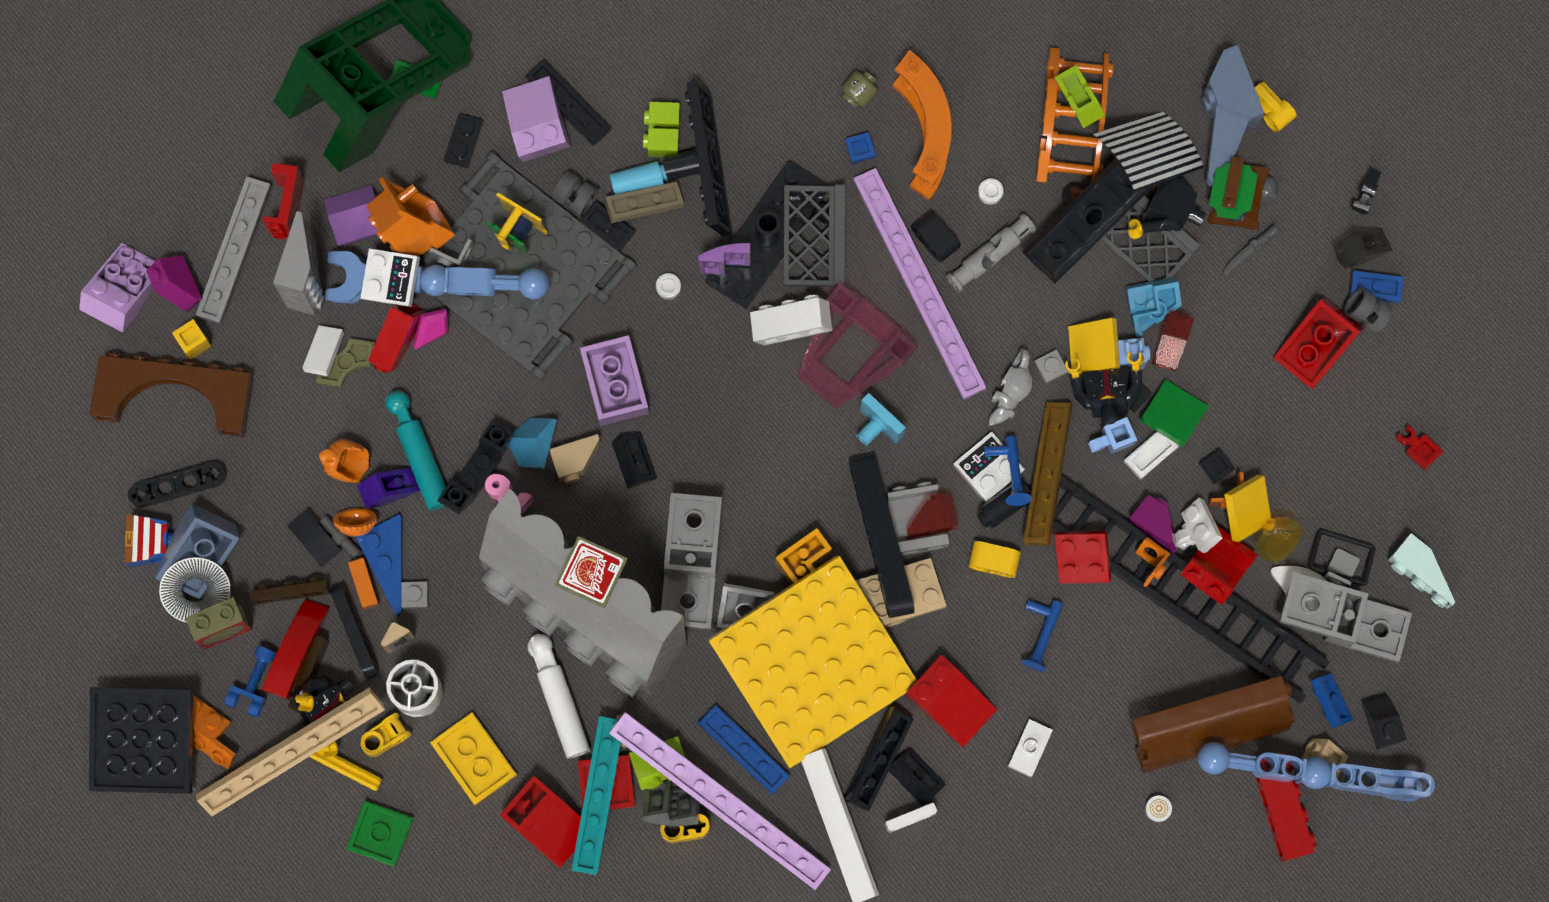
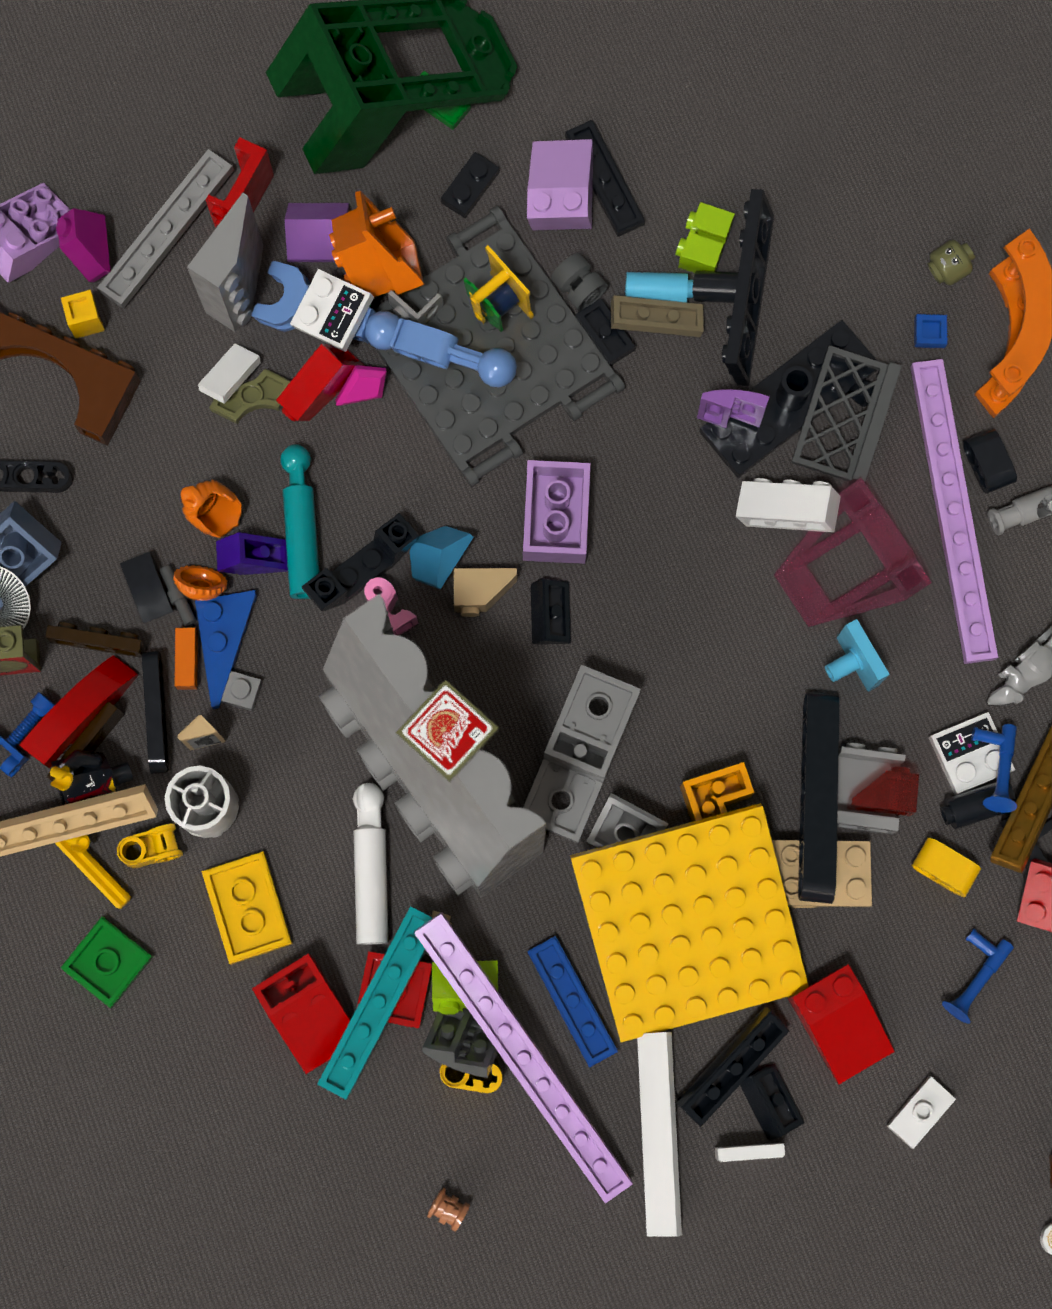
camera: 20 degrees right, 0 degrees up
(668, 286) = (654, 423): white tile -> none

